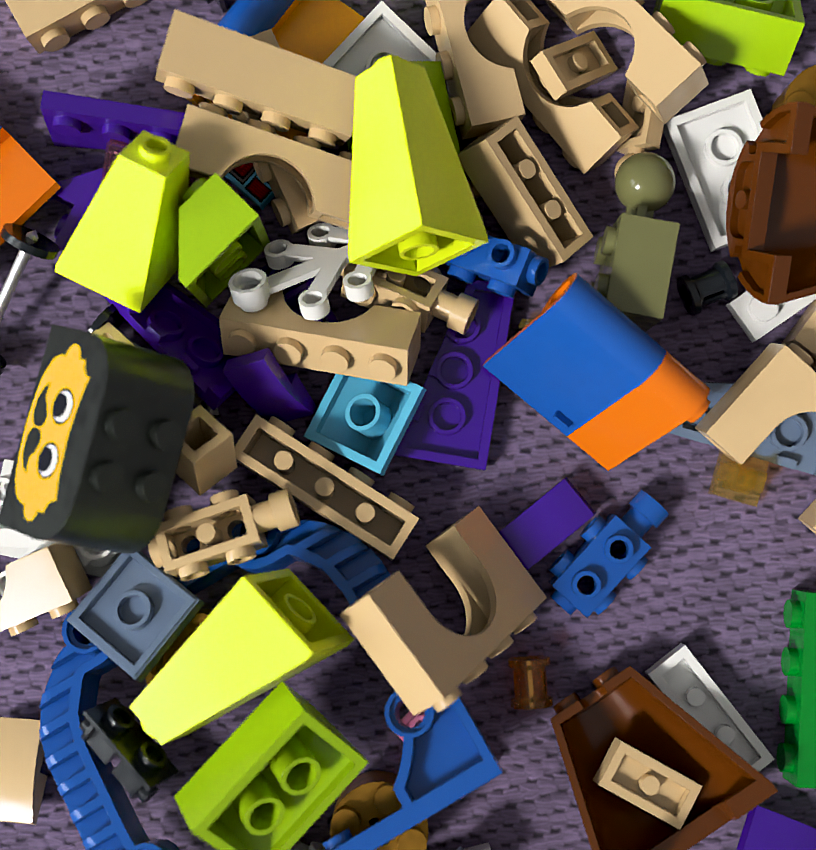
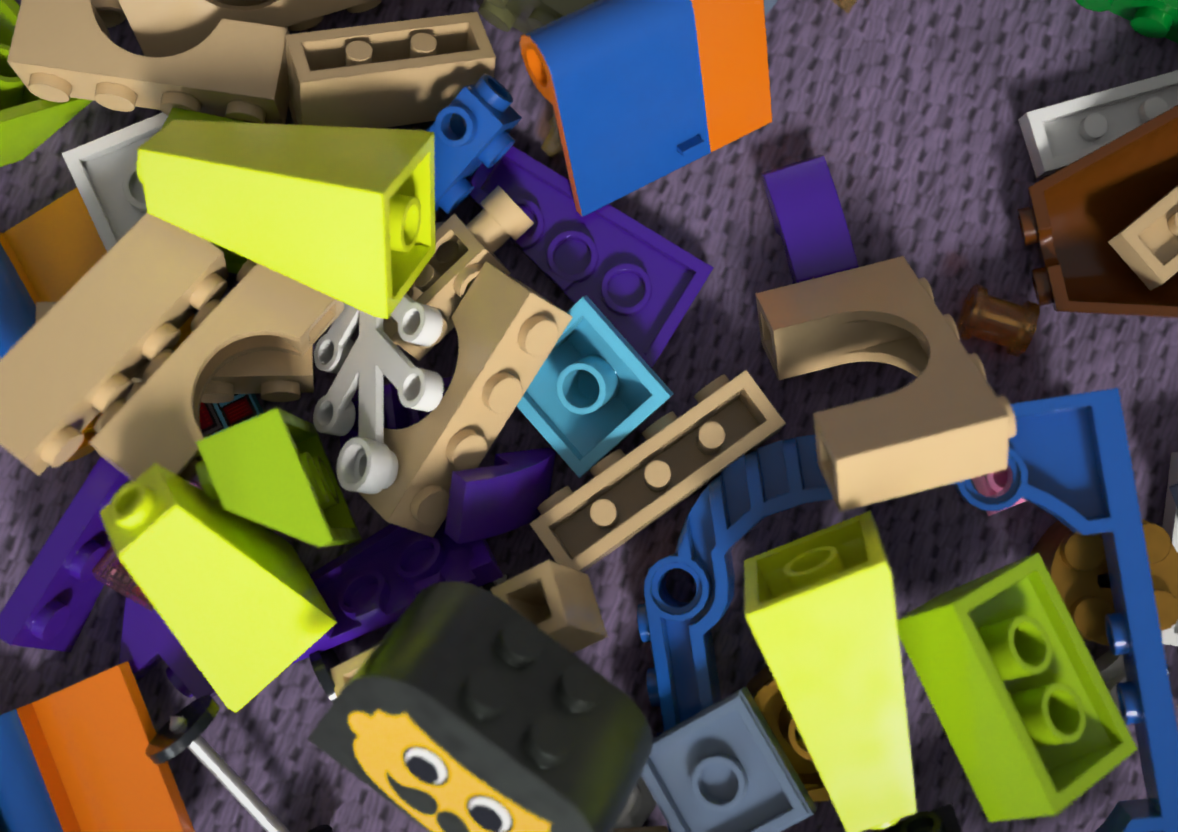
camera: 65 degrees left, 0 degrees up
(214, 531) = (657, 638): tan brick -> none
(595, 560) = (876, 176): blue brick -> none

